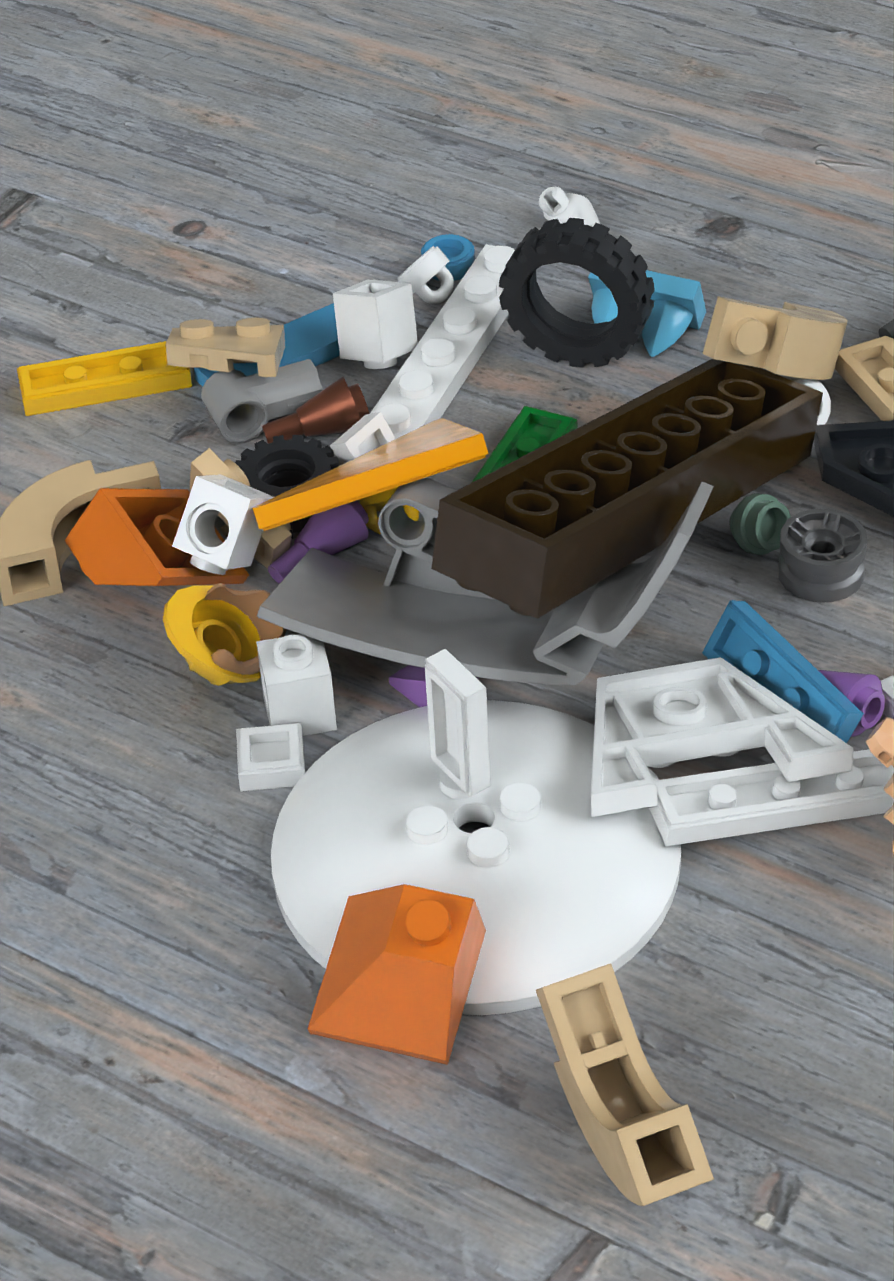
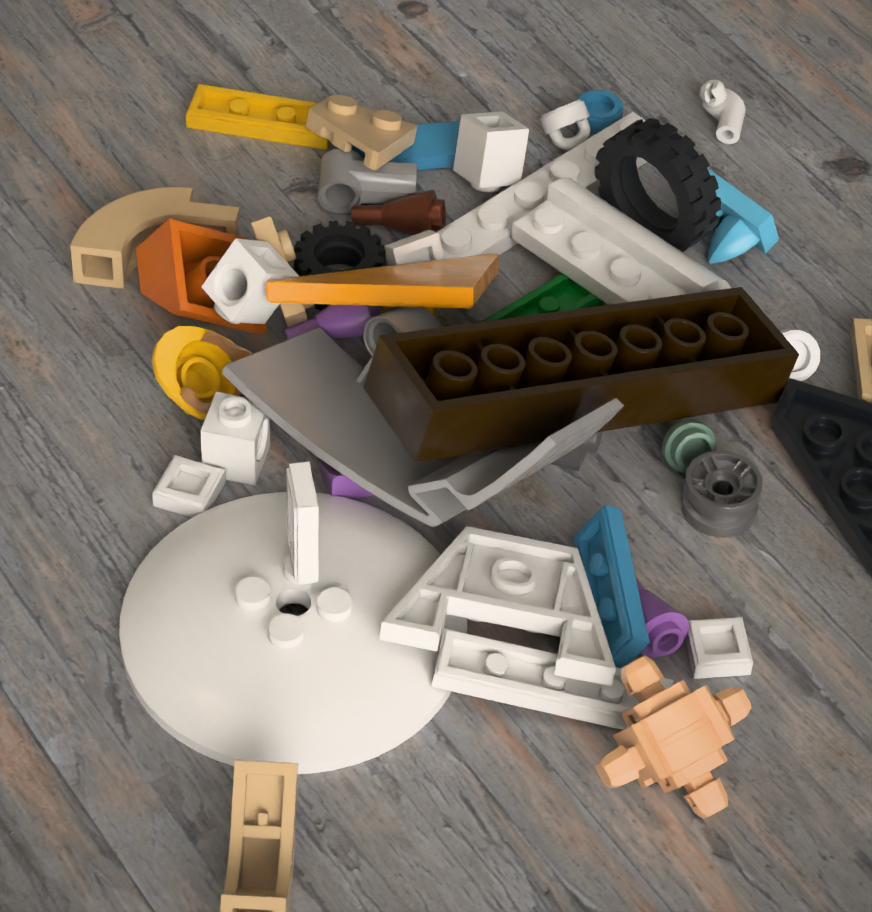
camera: 20 degrees right, 5 degrees up
(400, 971) = (164, 704): orange slope -> none
(555, 371) = (608, 249): none -> white brick
(785, 341) = (792, 297): tan arch -> none

